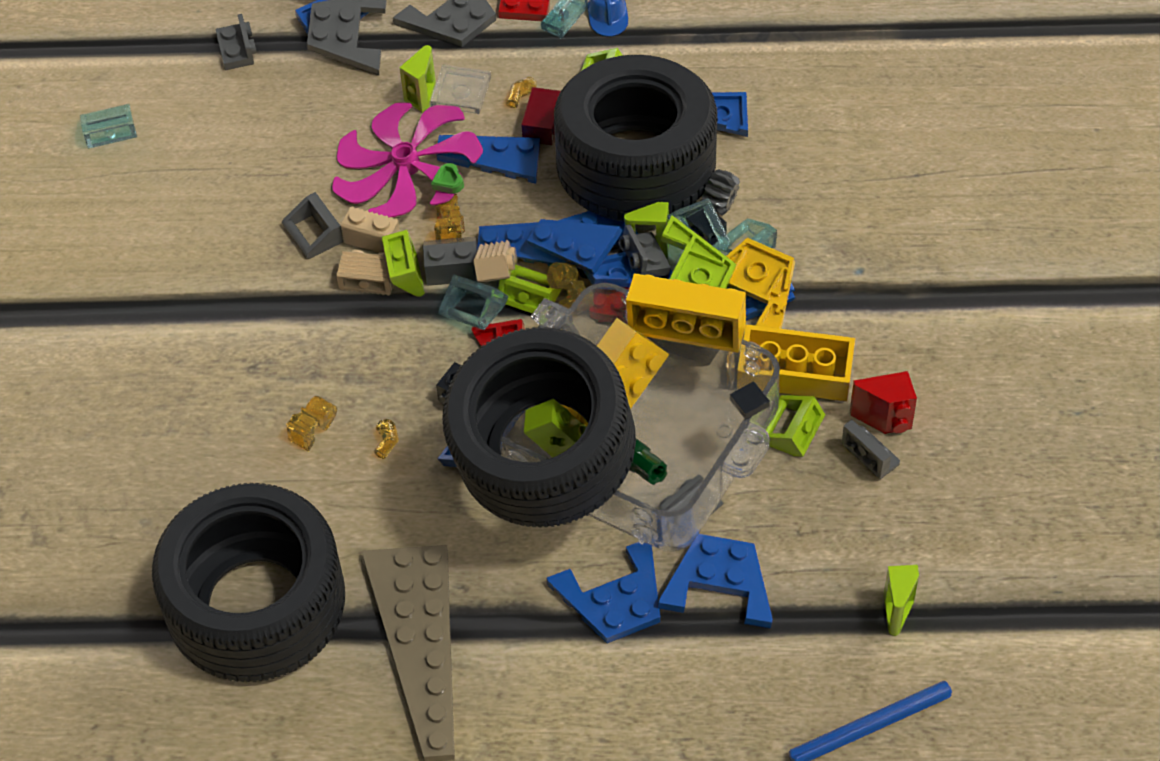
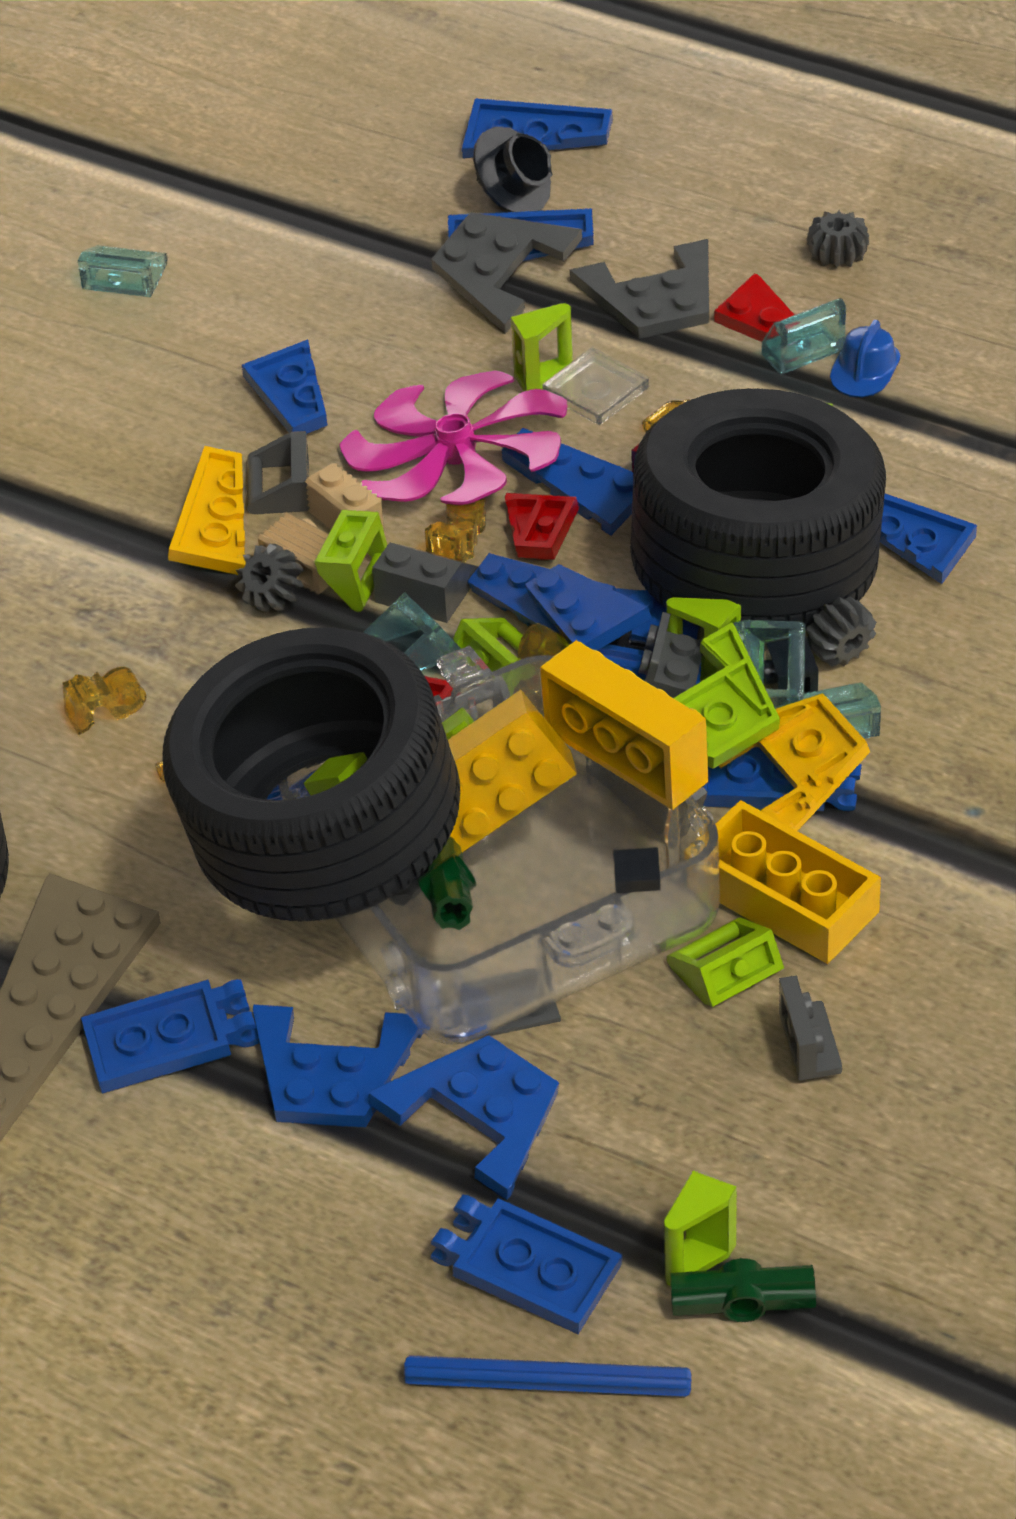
camera: 30 degrees right, 10 degrees down
(235, 45) = (349, 232): dark grey bracket -> none
(274, 164) = (289, 387): none -> blue wing
(290, 270) = (212, 517): none -> yellow wing
(362, 309) = (269, 577): none -> dark grey gear
(448, 179) = (481, 476): bright green tile -> none
(492, 194) = (540, 523): none -> red wing
(494, 261) = (465, 594): tan brick -> none
(506, 620) = (168, 1033): none -> blue tile
(812, 660) = (527, 1261): none -> blue tile
(885, 402) = (868, 977): red slope -> none
(940, 620) = (743, 1290): none -> dark green piece

